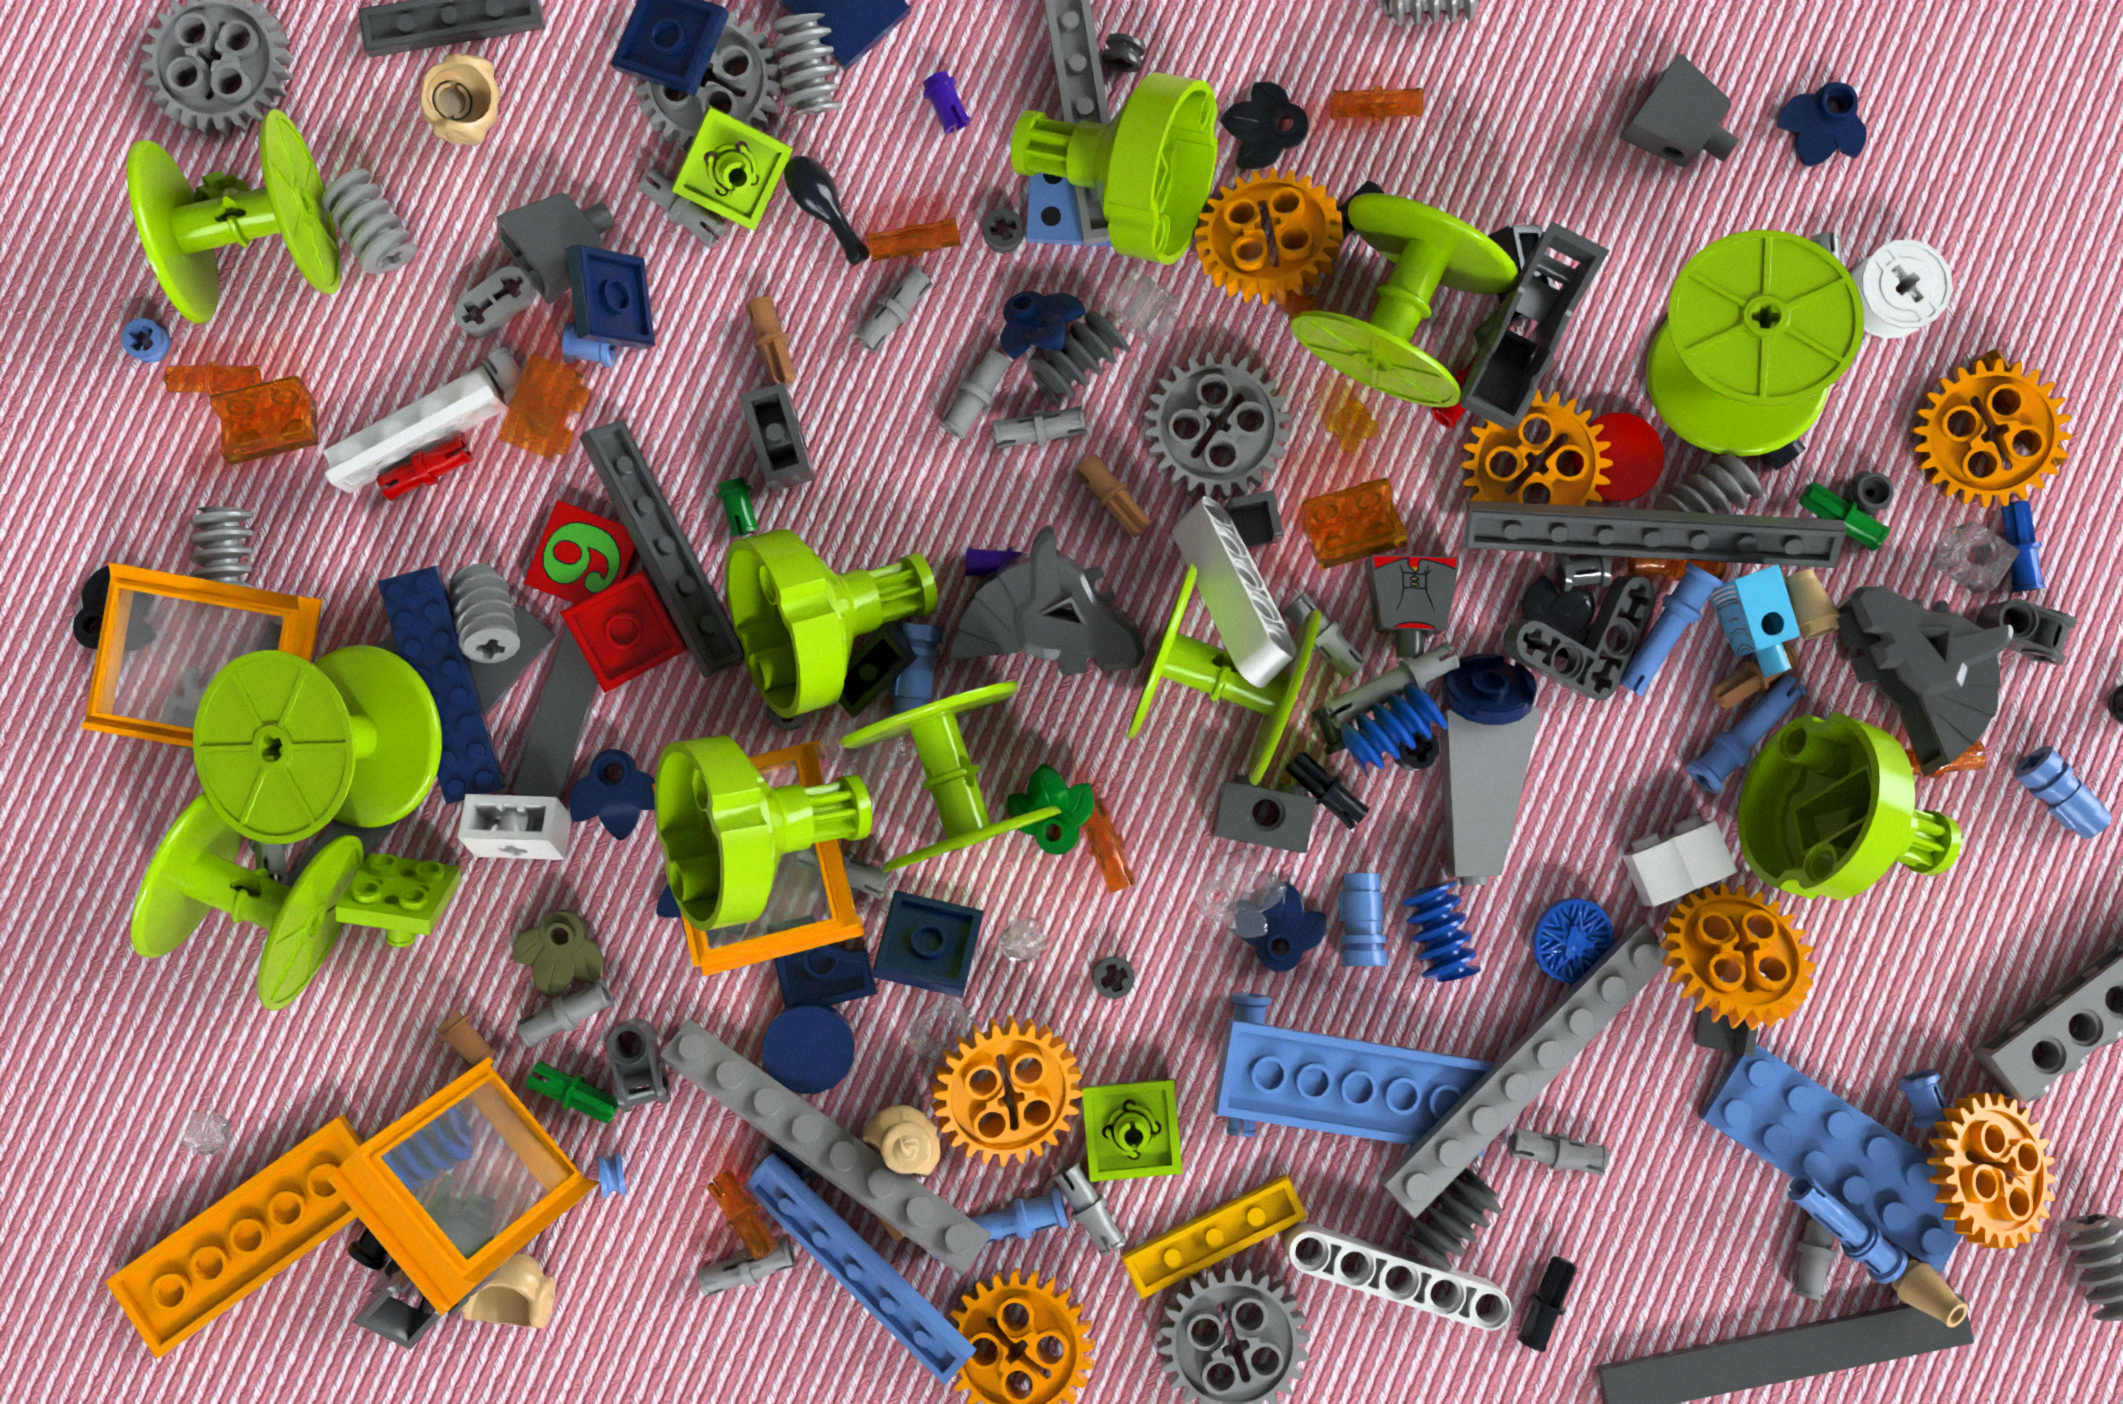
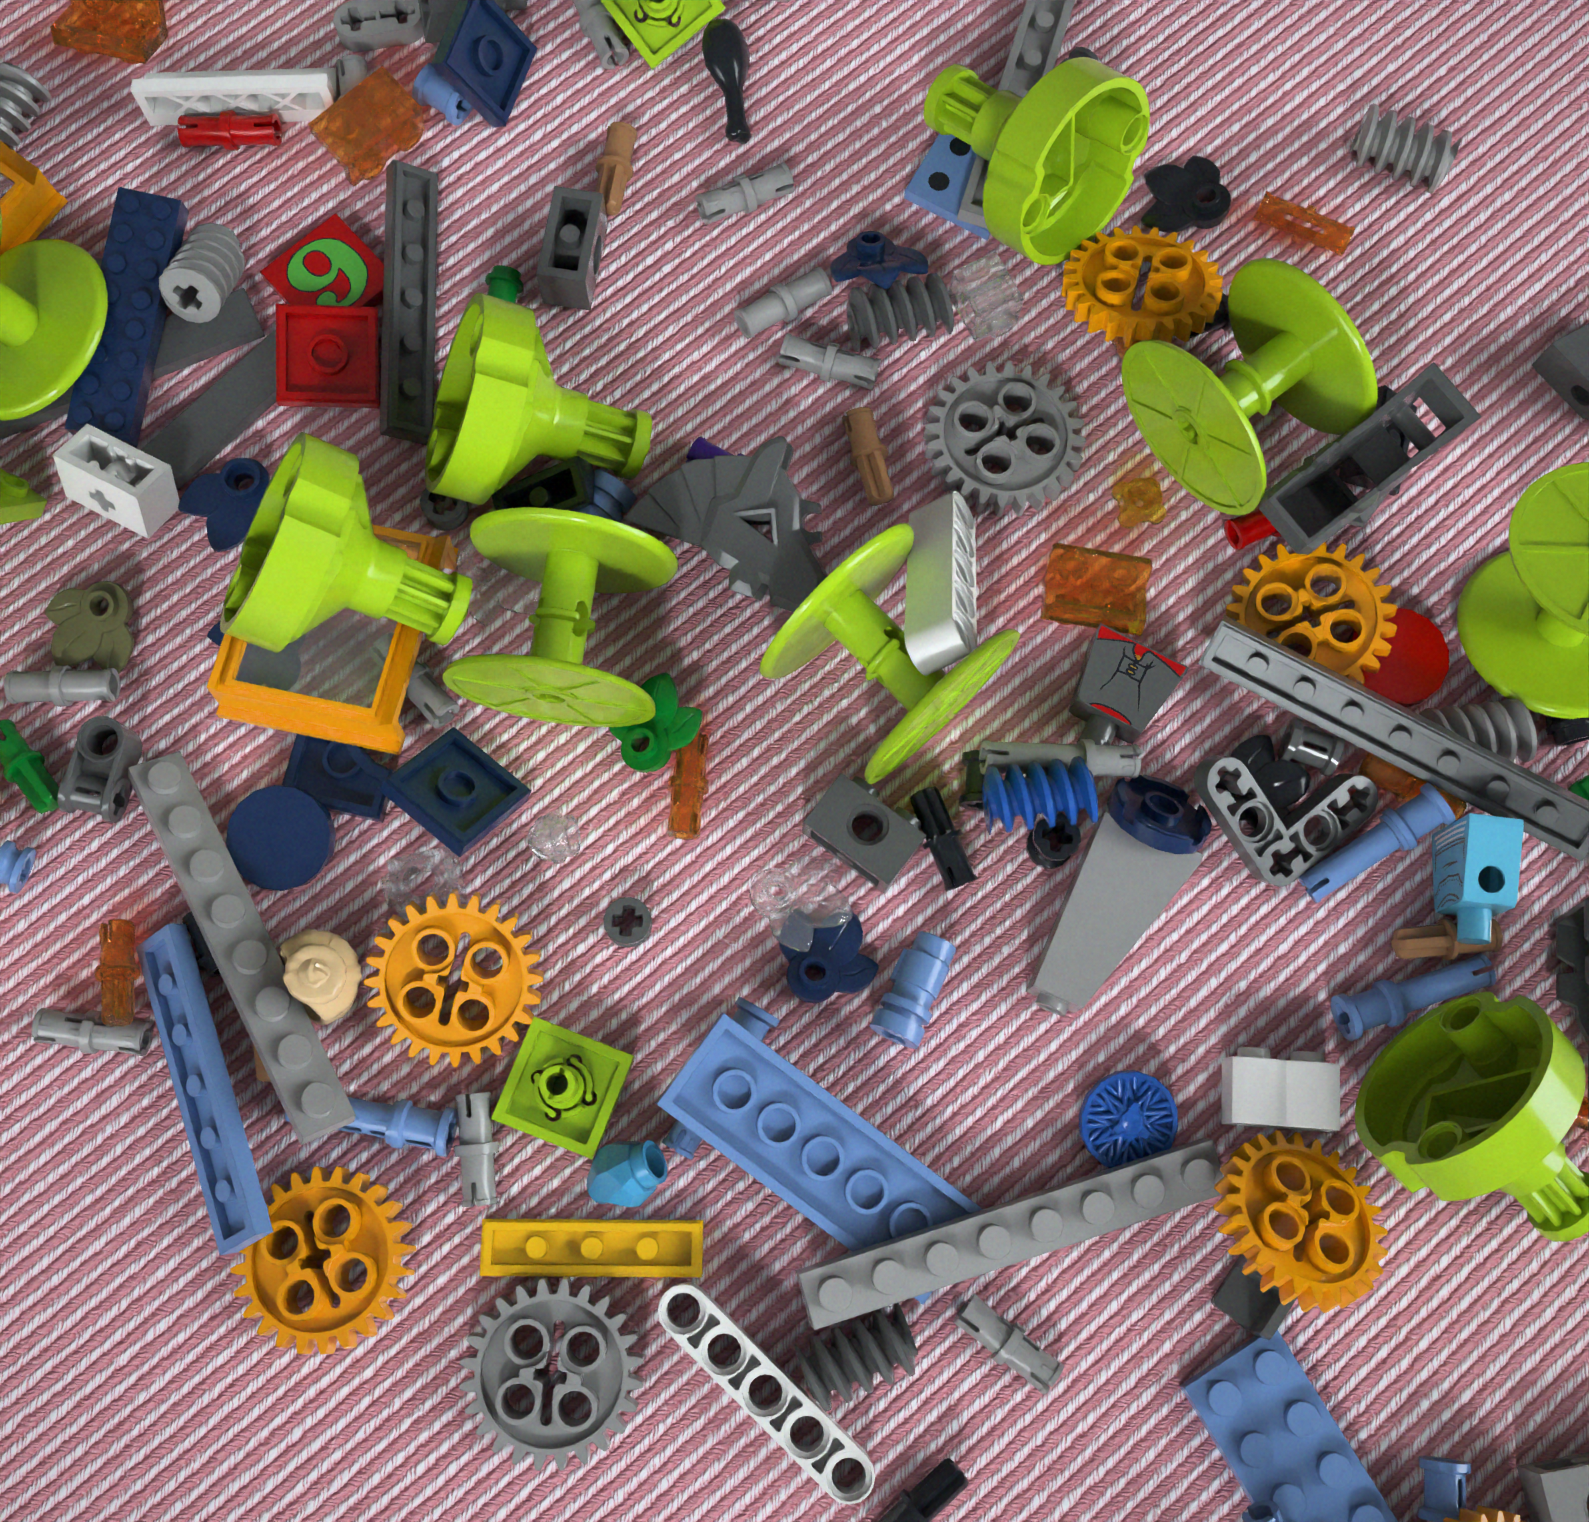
camera: 25 degrees right, 10 degrees down
(913, 239) = (797, 142): clear orange pin -> none
(941, 92) = (891, 29): dark purple pin -> none
(1010, 219) = (886, 160): dark grey bush -> none
(1213, 1170) = (626, 1173): none -> dark azure rock
(1256, 518) = (999, 539): dark grey panel -> none
(1328, 639) = (1017, 697): light grey pin -> none
(1440, 933) = (989, 1039): blue piece -> none
(1811, 605) = (1539, 898): tan cone -> none

